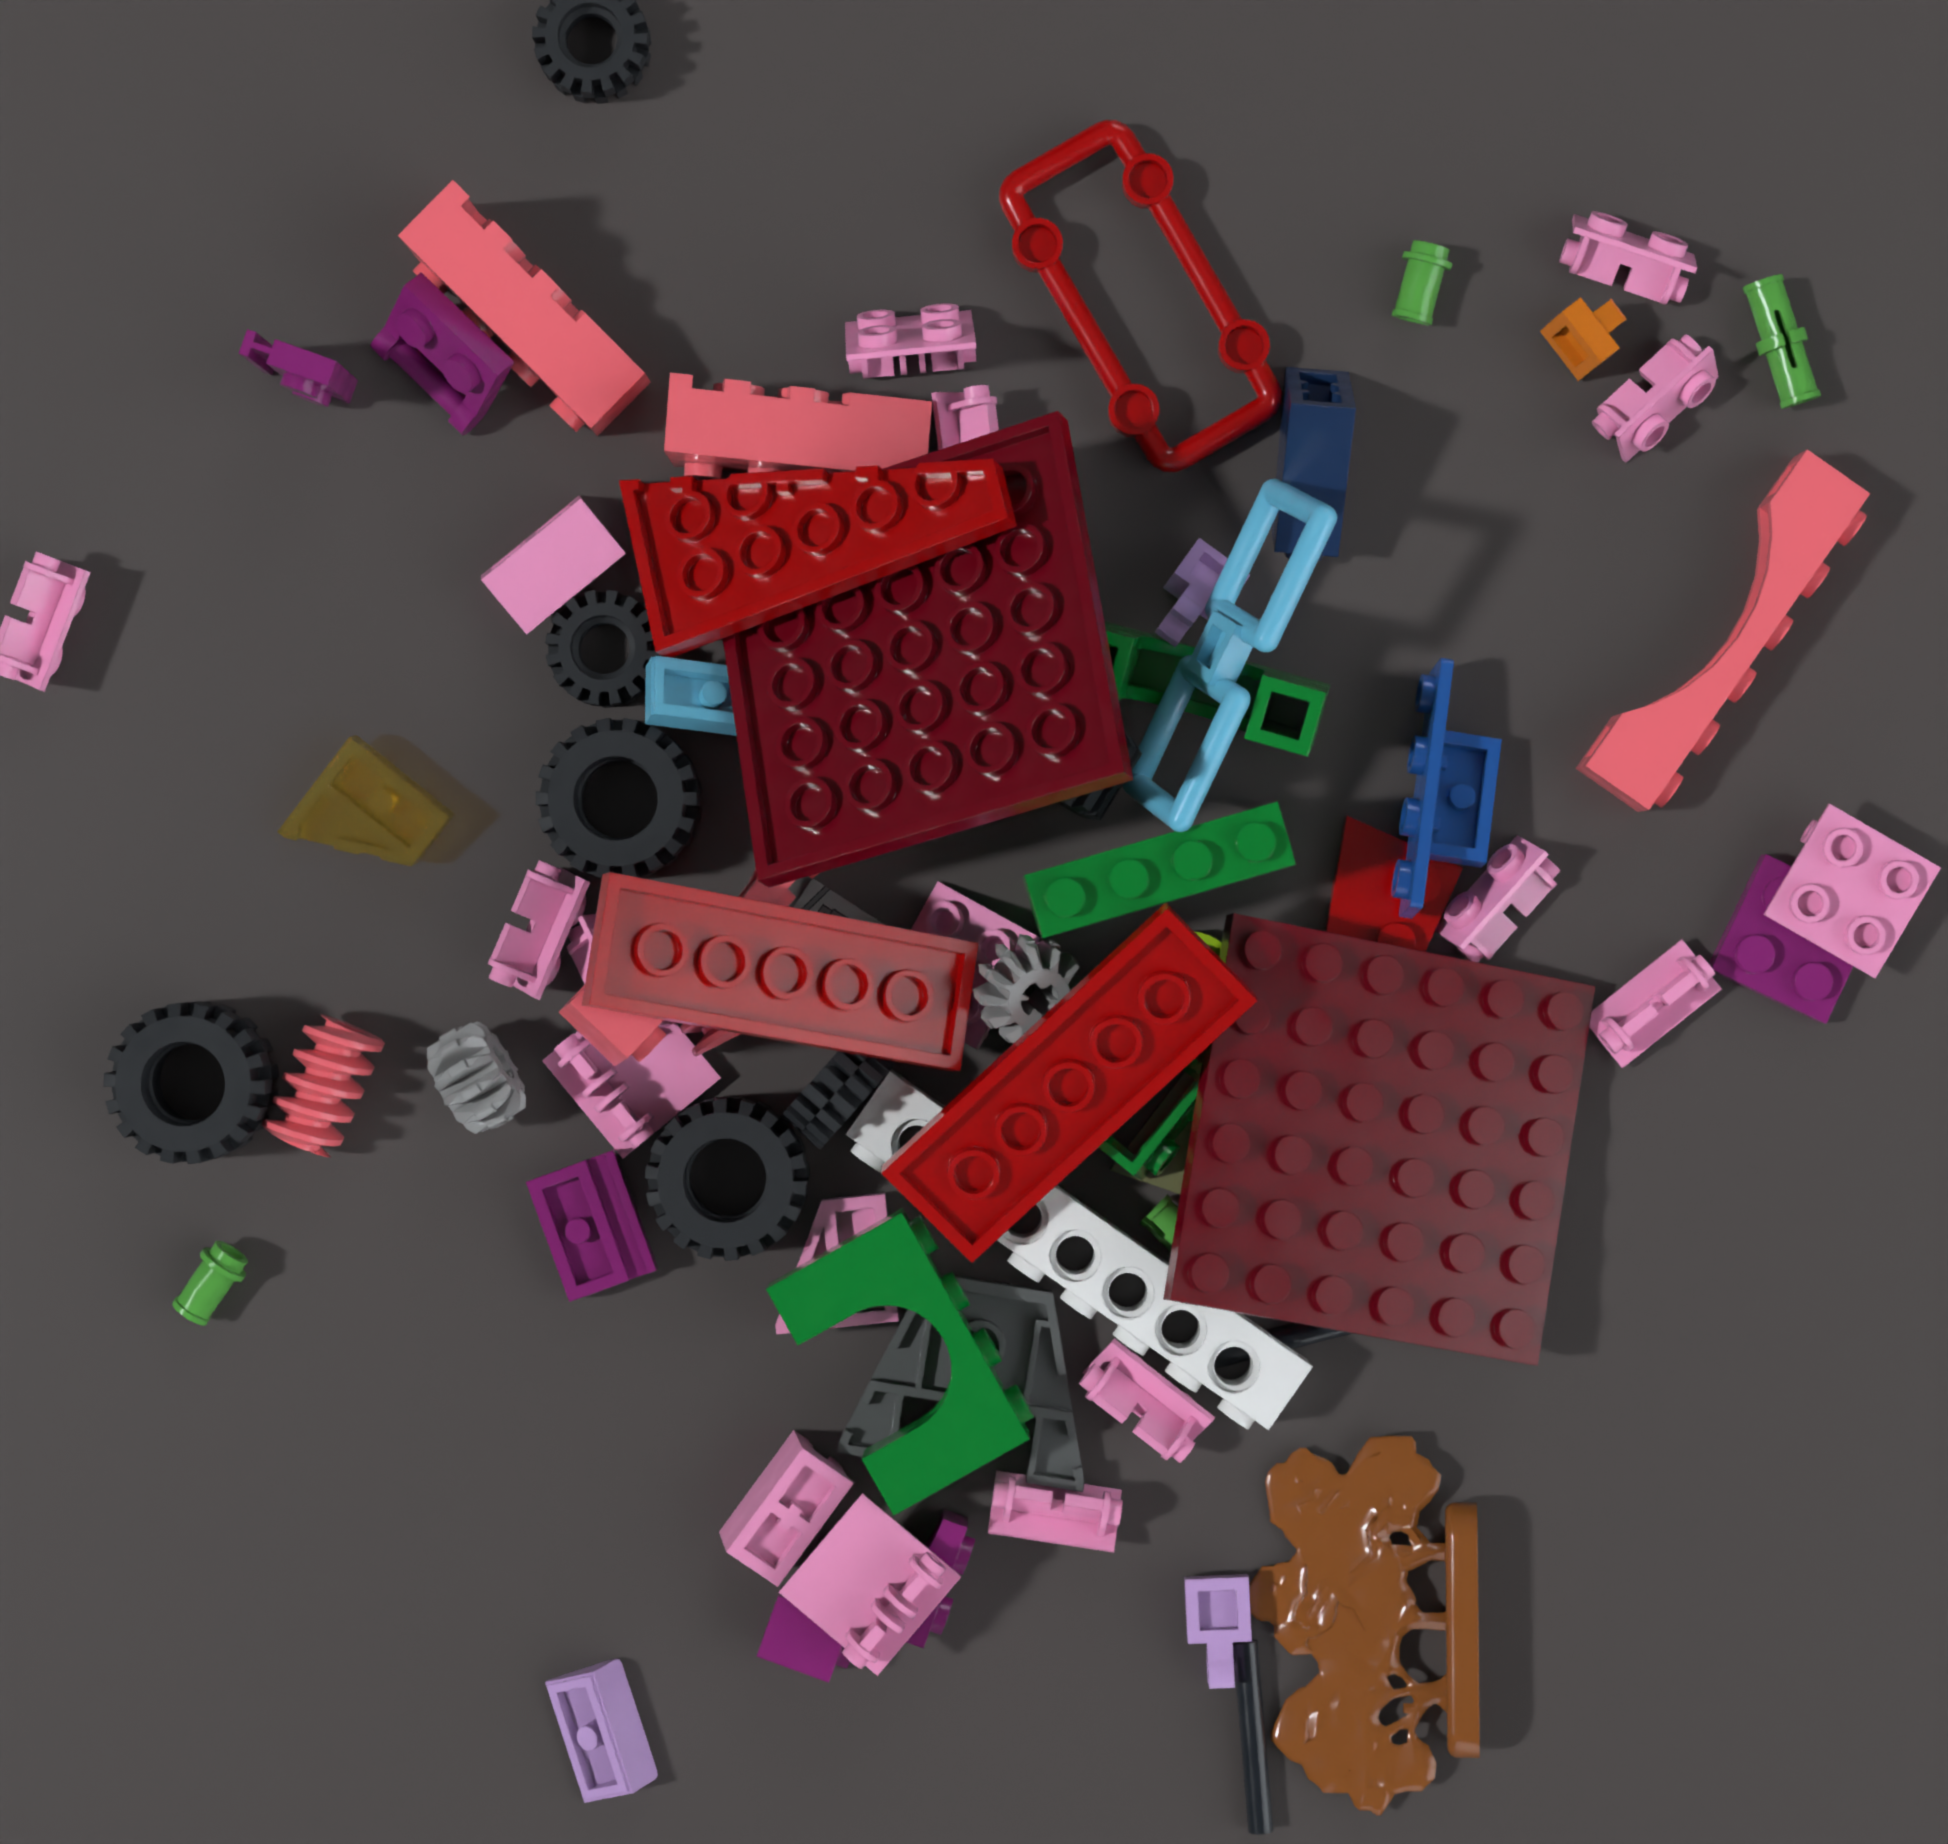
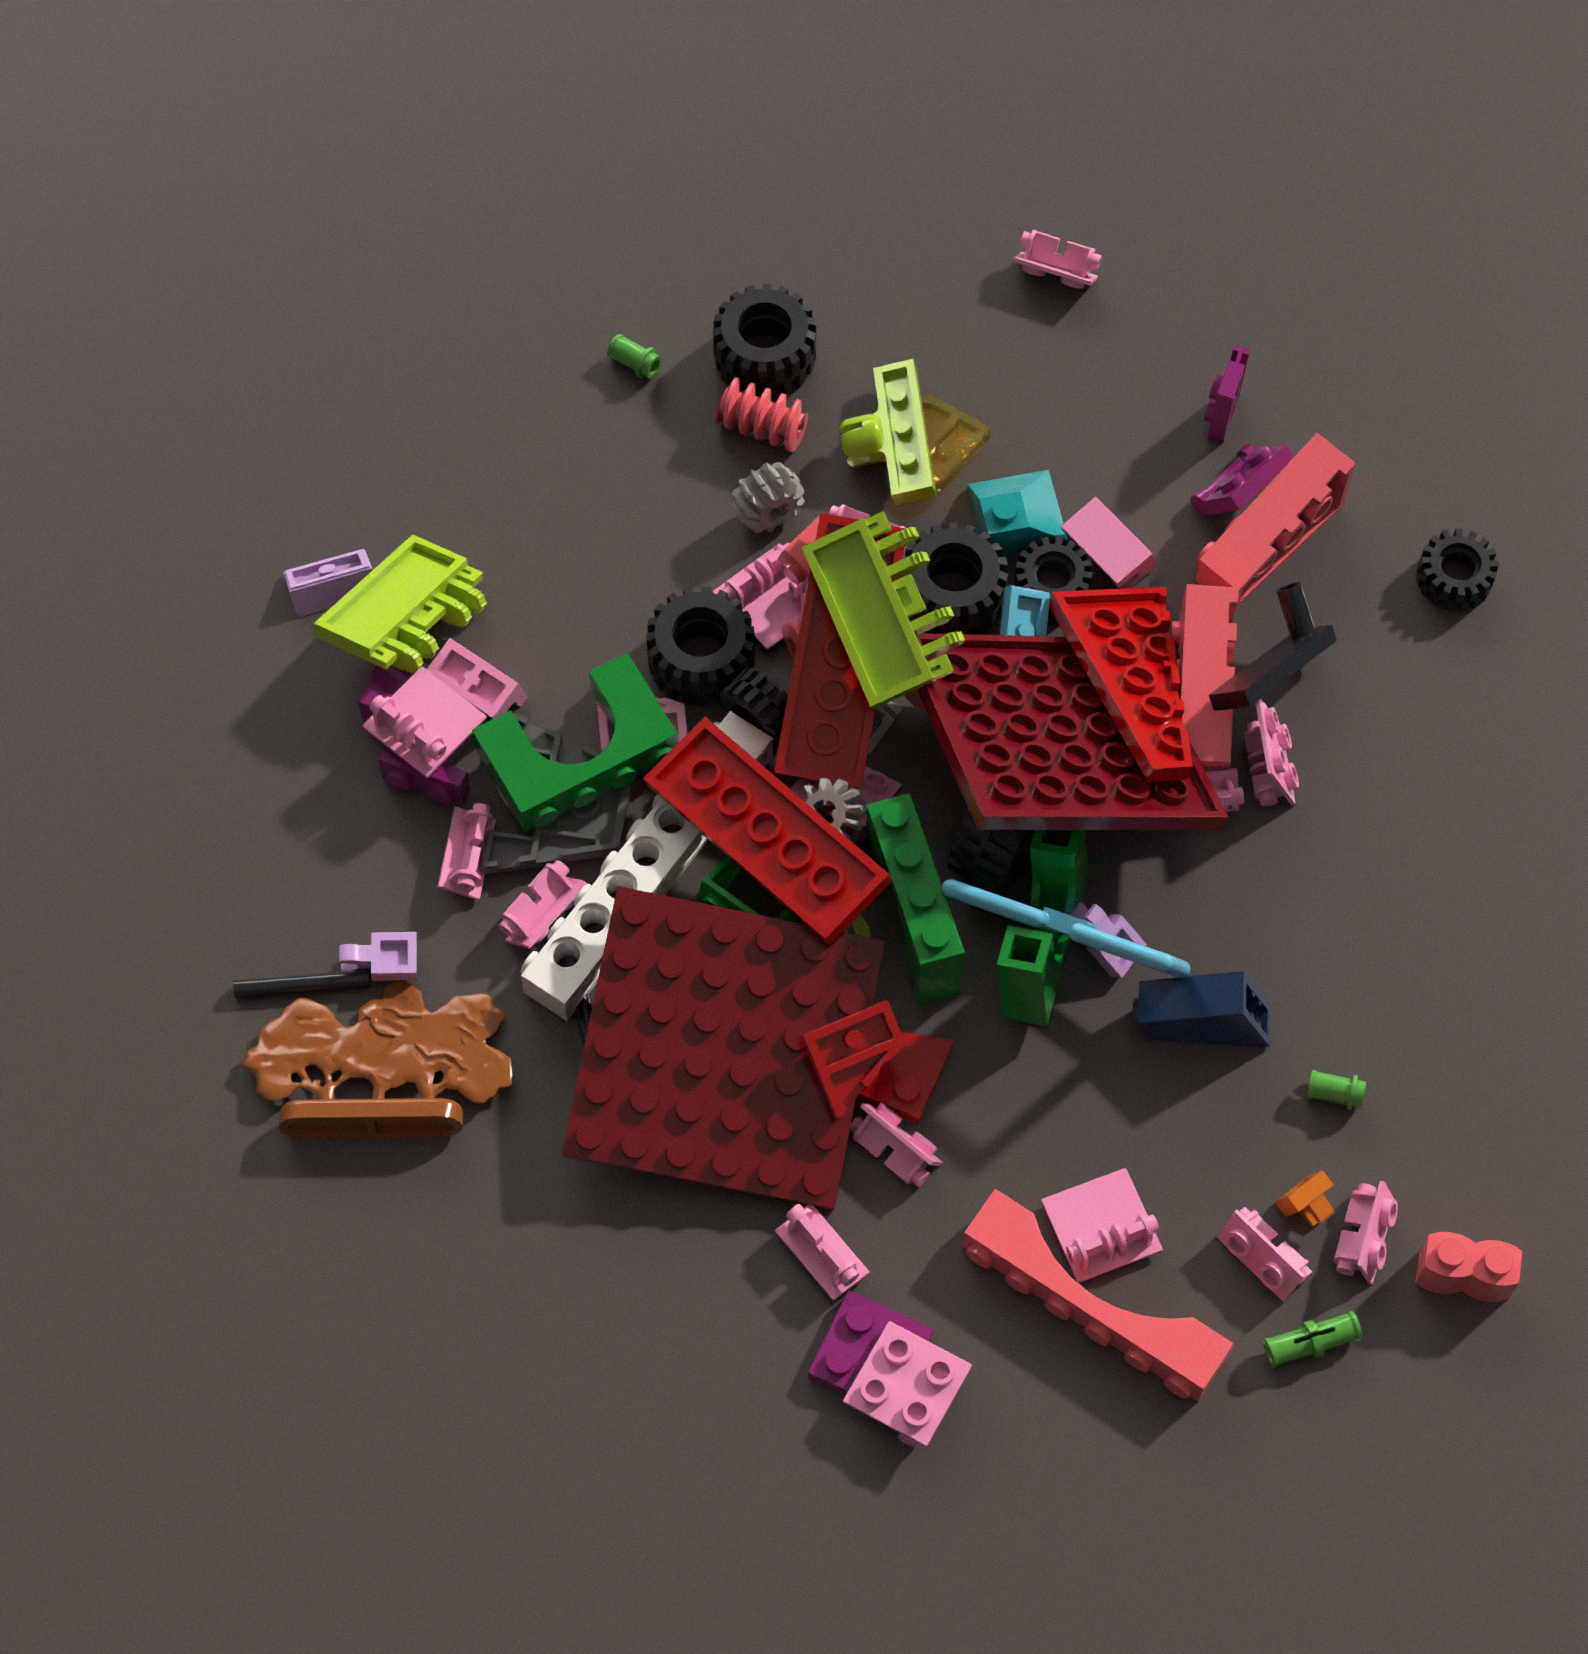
camera: 90 degrees right, 25 degrees down
(363, 882) = (894, 434): none -> lime plate
(485, 699) = (1017, 511): none -> teal slope
(592, 1225) = (667, 569): magenta plate -> none
(651, 1630) = (399, 602): none -> lime hinge
(751, 921) = (875, 611): none -> lime hinge
(775, 323) = (1281, 660): none -> black piece
(1147, 185) = (1342, 842): red bar -> none
(1405, 961) = (852, 1052): none -> red wing
(1452, 793) = (972, 1101): blue bracket -> none
(1615, 619) = (1102, 1225): none -> bright pink hinge
(1687, 110) = (1457, 1264): none -> coral brick

